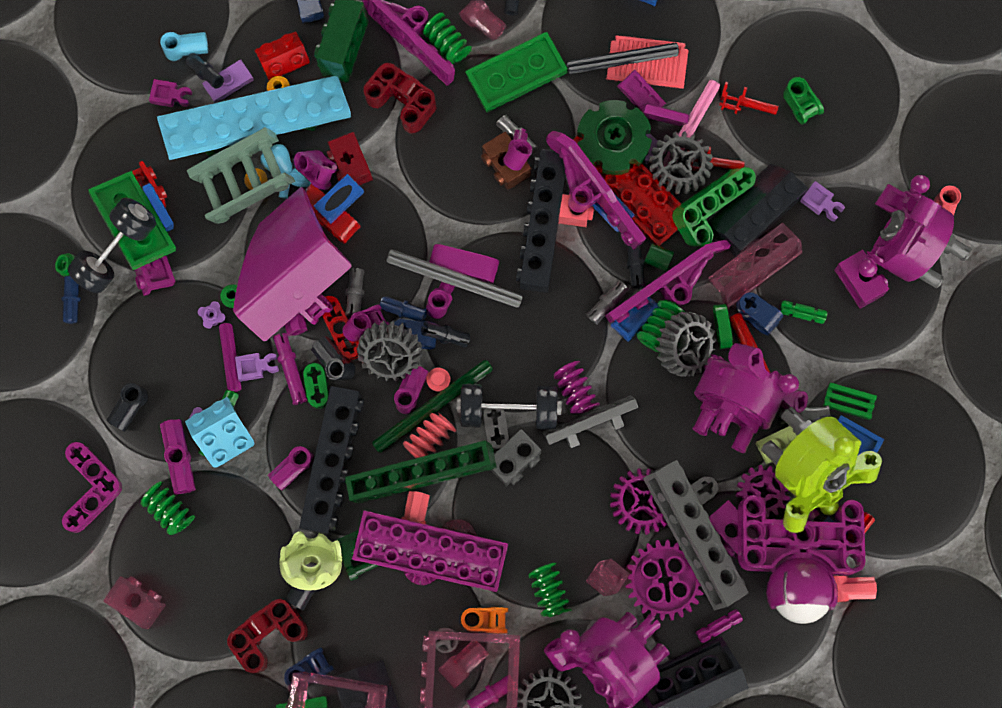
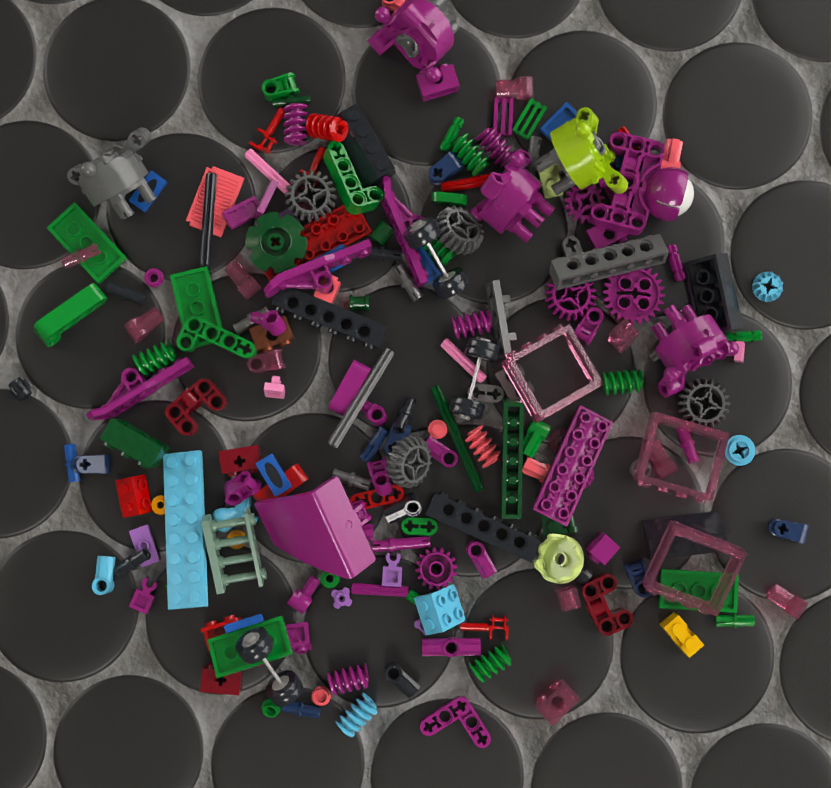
camera: 80 degrees left, 10 degrees up
(74, 366) = (357, 716): none -> medium azure piece
(85, 214) = (212, 684): none -> dark red brick
(91, 319) = (321, 695): none -> coral plate
(114, 345) = (349, 679): none -> magenta piece
(201, 268) = (302, 597): none -> magenta axle
(210, 496) = (486, 627): none -> red piece
(260, 407) = (444, 575): none -> magenta gear
(264, 585) = (568, 598): none -> clear pink brick
(334, 611) = (601, 548): none -> magenta brick
(442, 180) = (275, 388): none -> bright pink tile
(460, 499) = (535, 435): none -> green piece
(474, 165) = (268, 361): none -> clear pink piece
(483, 102) = (219, 340): none -> green beam
(487, 620) = (632, 434): orange piece -> none
(530, 390) = (462, 359): none -> bright pink axle
(542, 11) = (148, 275): none -> magenta plate
(559, 117) = (245, 283): none -> clear pink piece
(568, 251) = (359, 302): none -> dark green bush
(576, 477) = (525, 391): none -> clear pink window
(608, 532) = (588, 326): none -> magenta piece
(619, 349) = (421, 234): none -> black axle
(760, 271) = (412, 157): clear pink fence -> none
(763, 125) = (293, 124): none -> magenta piece
(768, 161) = (326, 127): none -> red piece
(783, 337) = (470, 154): none -> green piece
(790, 117) = (291, 99): none -> dark green bar
(804, 361) = (495, 146): none -> magenta piece
(819, 199) = (366, 97): medium lavender plate -> none
(862, 364) = (504, 101): none -> magenta tile
(884, 379) = (520, 87): none -> clear pink piece

